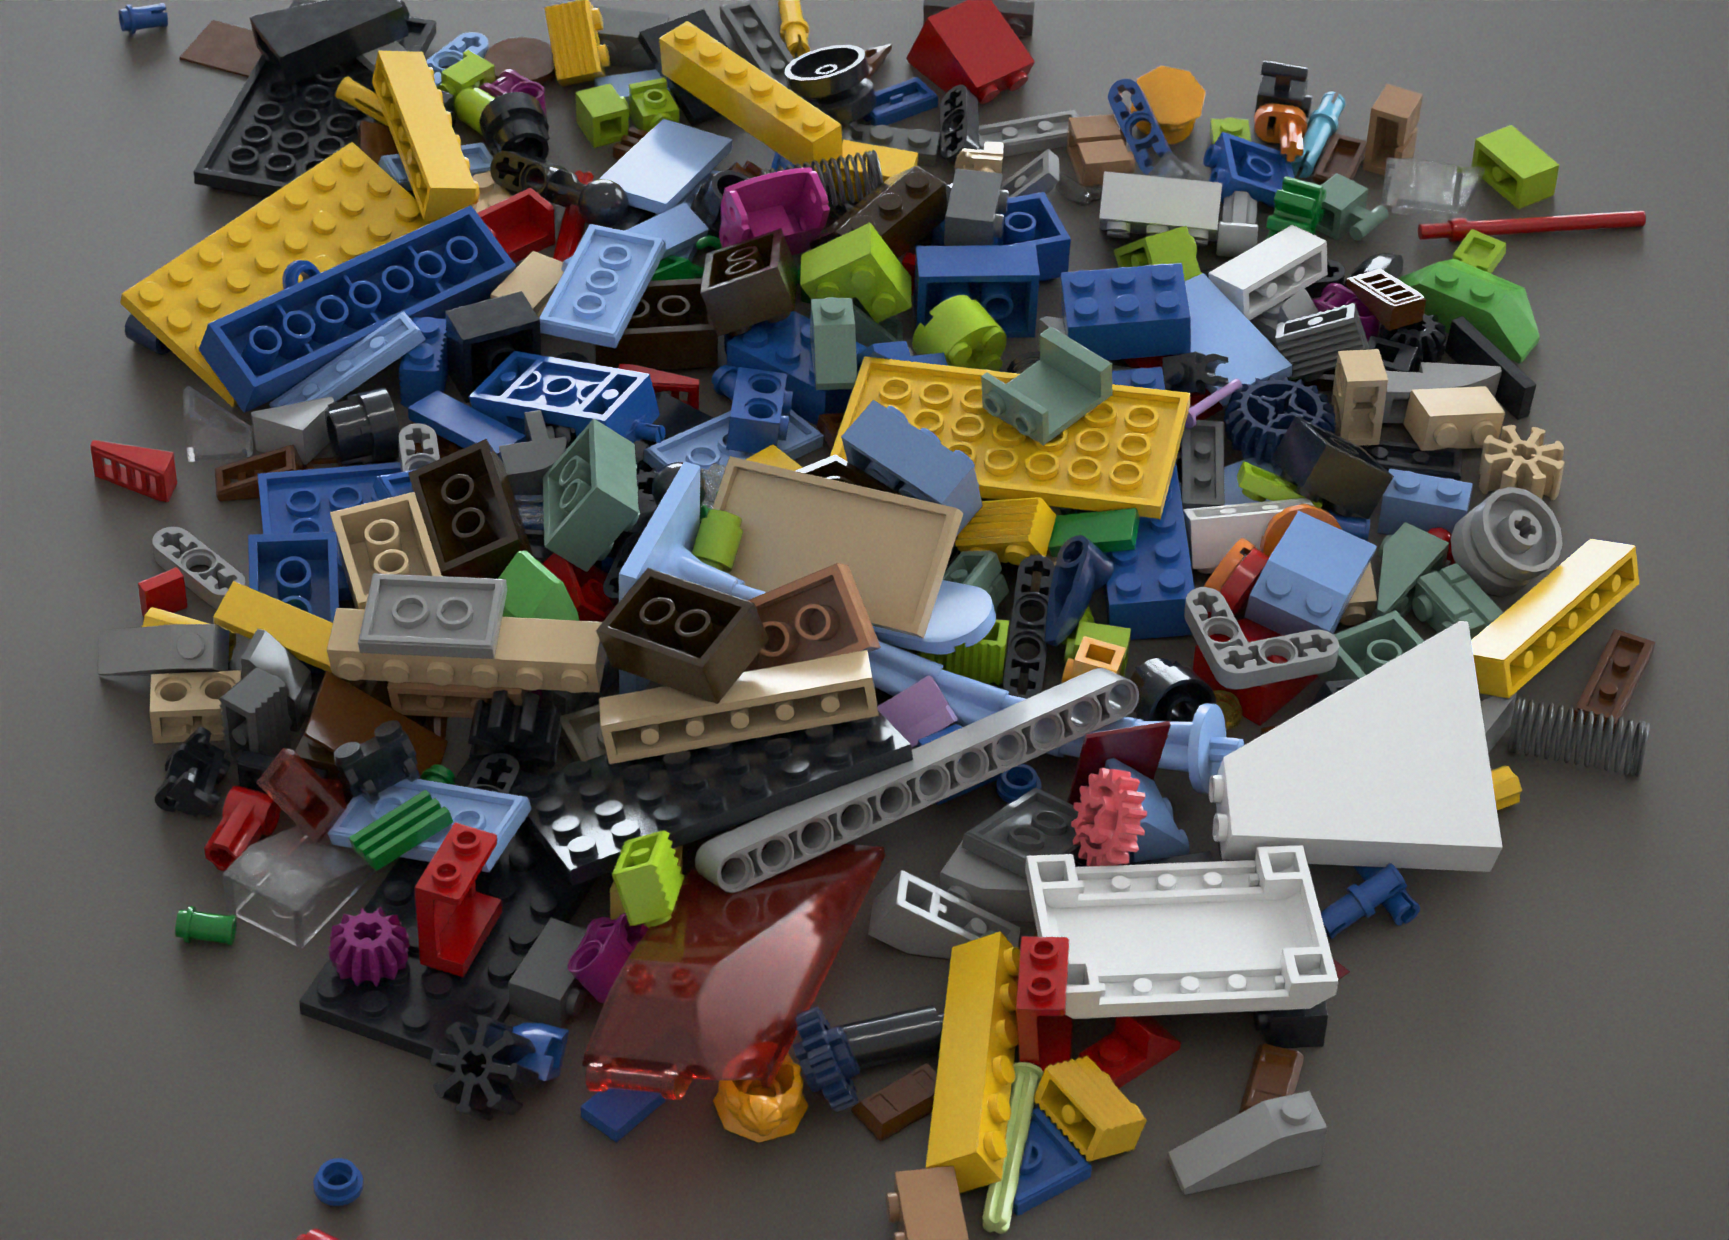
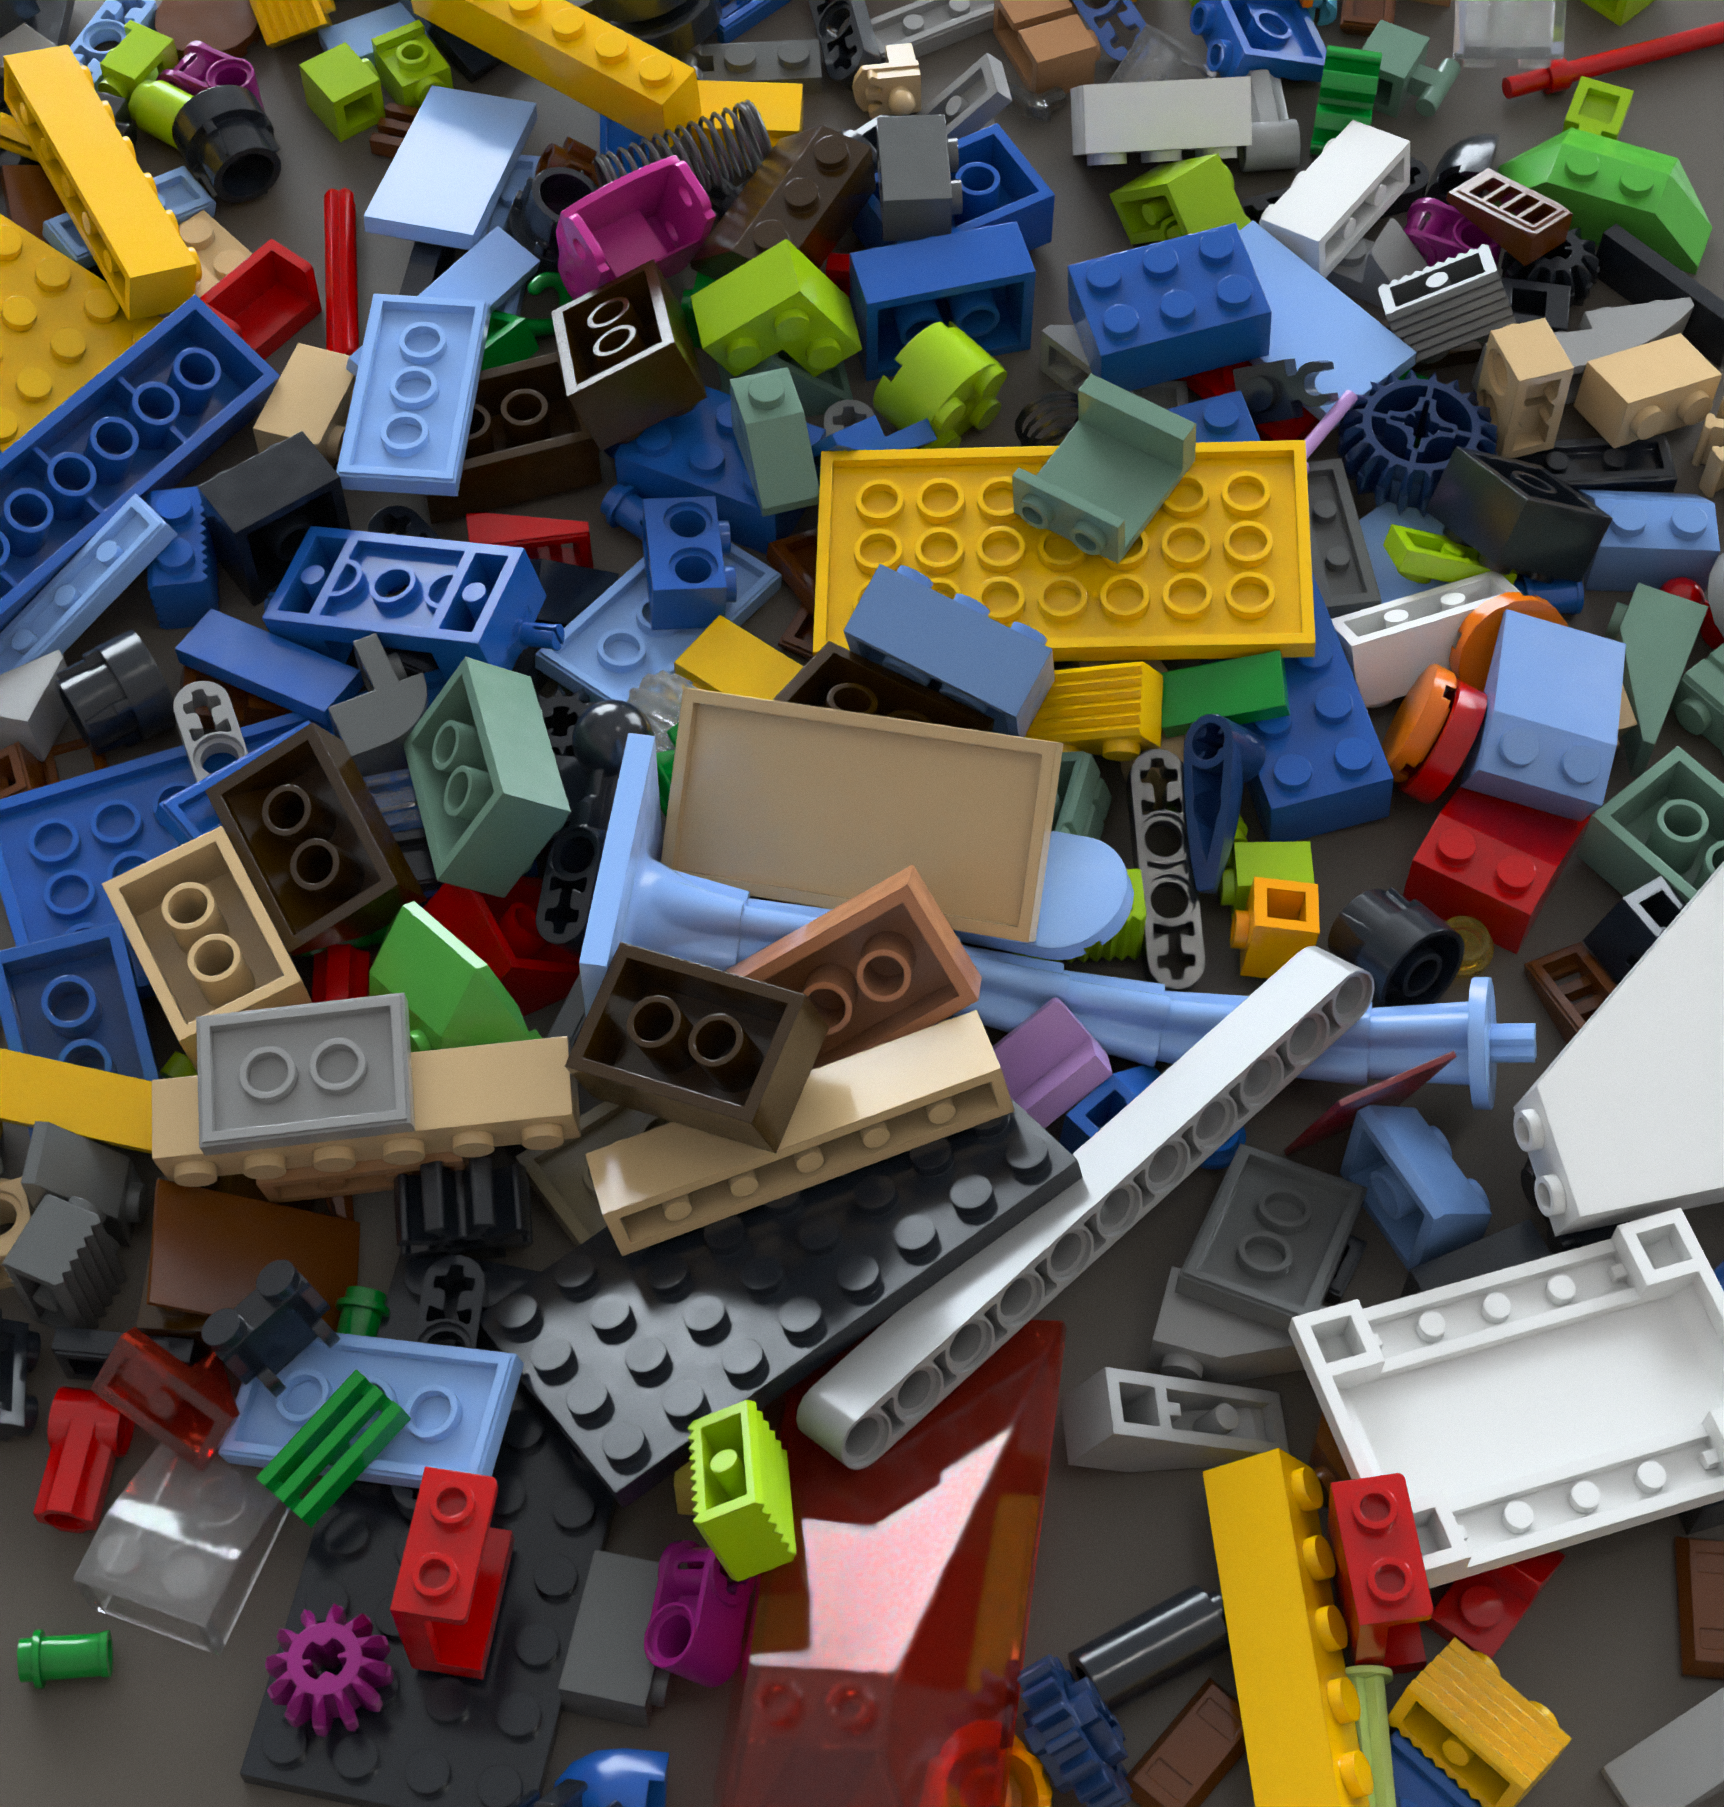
camera: 10 degrees left, 15 degrees up
(599, 202) = (376, 244): black beam -> none
(718, 539) = (693, 828): lime brick -> none
(1109, 818) = (1392, 1219): coral gear -> none
(1244, 663) = (1487, 868): light grey beam -> none

